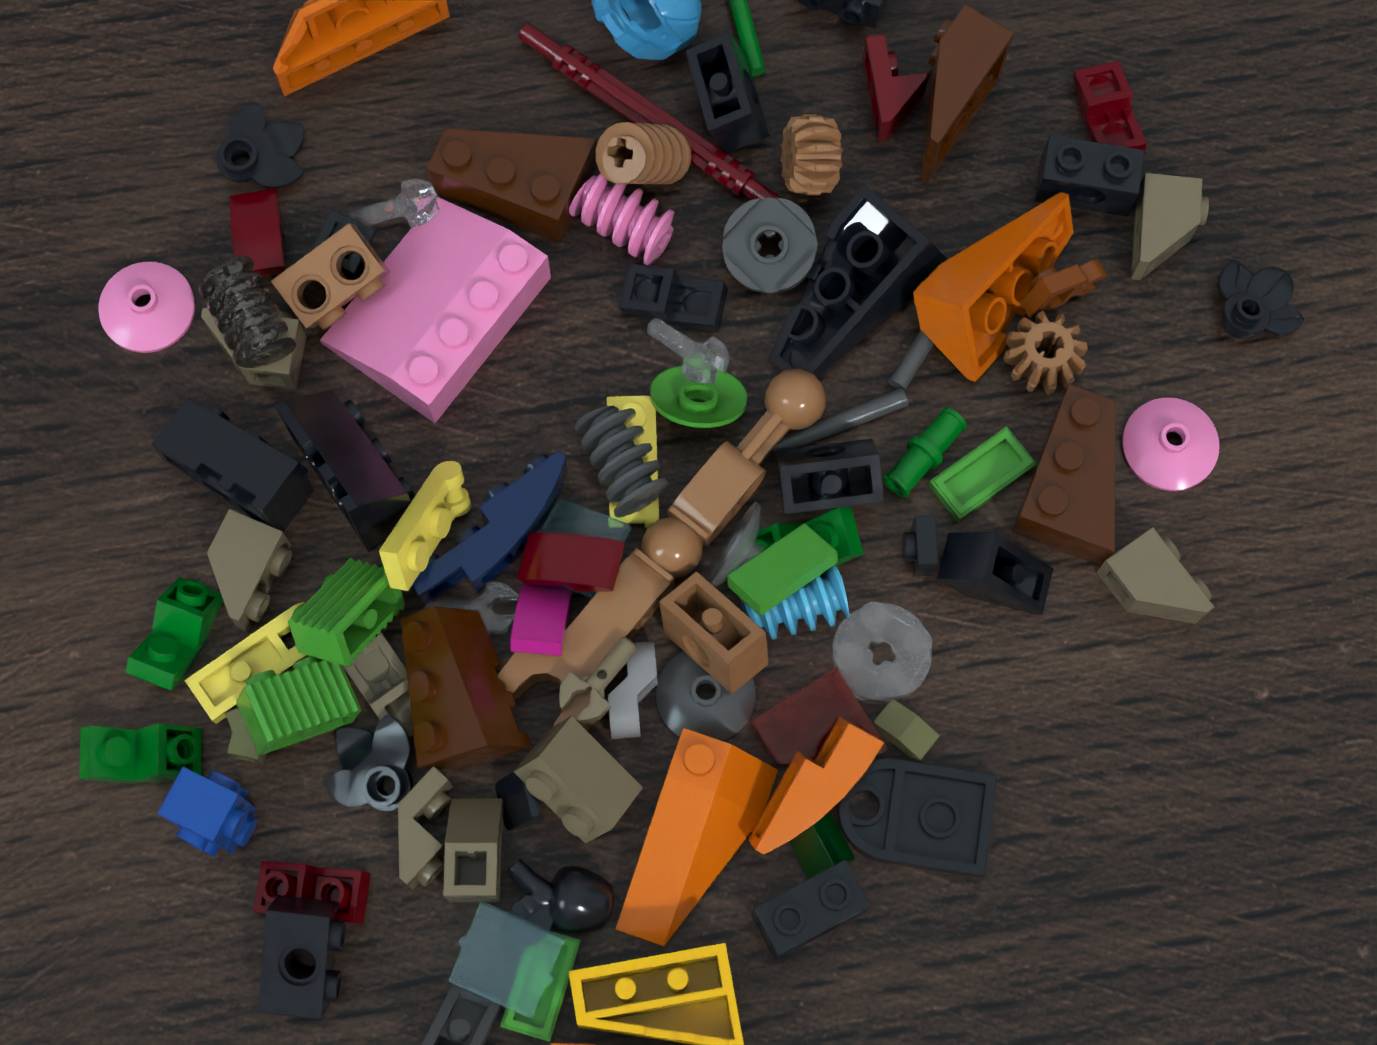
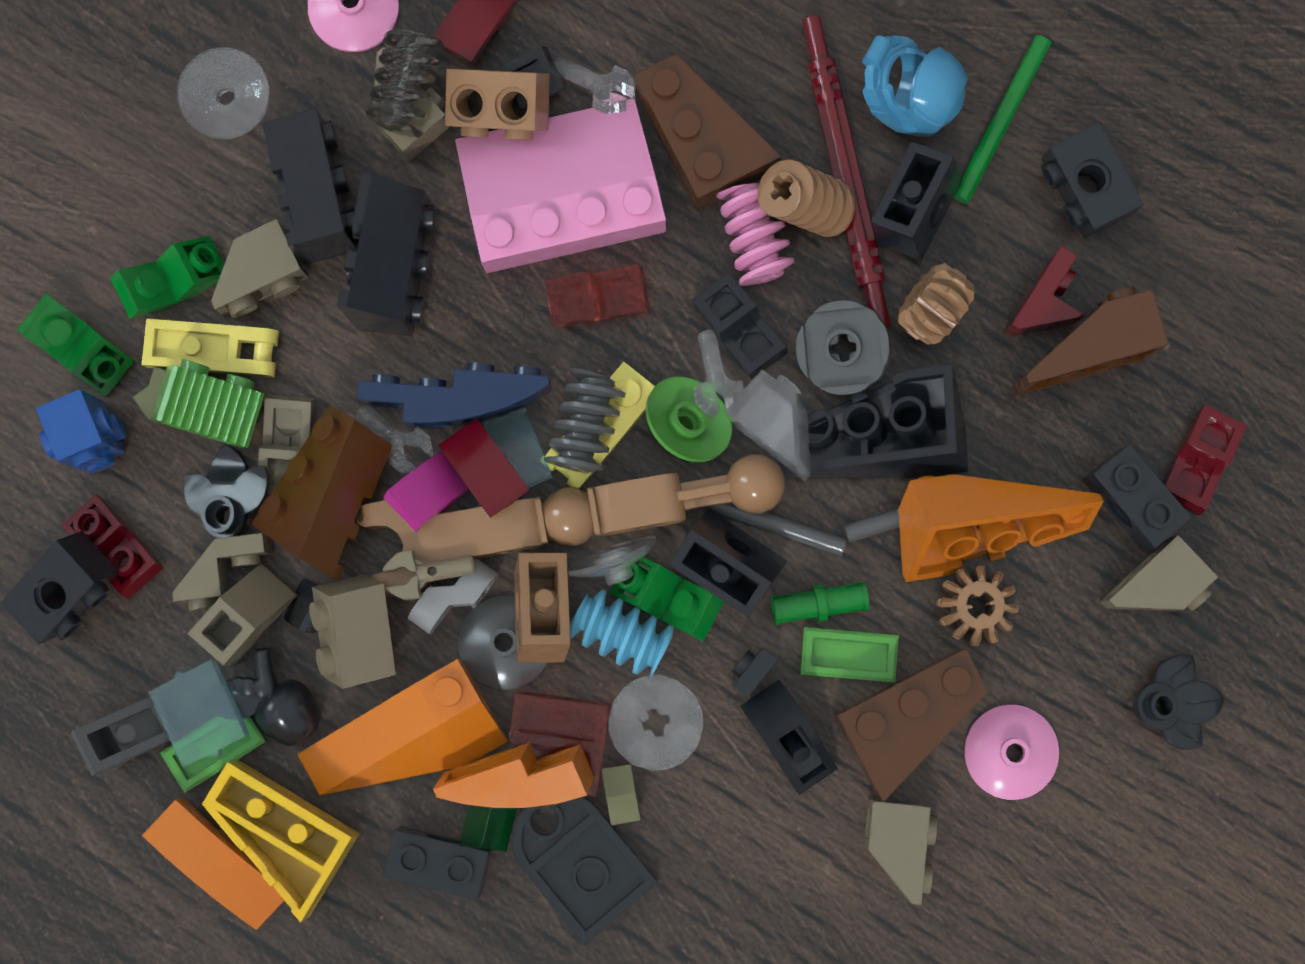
camera: 45 degrees right, 10 degrees up
(82, 437) = (208, 78): none -> clear dish
(345, 613) = (295, 368): bright green brick -> none
(424, 525) = (403, 350): light yellow plate -> none
(541, 367) = (597, 296): none -> clear red slope
(765, 342) = (775, 420): none -> clear slope
(782, 569) = (628, 605): bright green tile -> none
(1056, 287) = (1028, 563): dark orange plate -> none

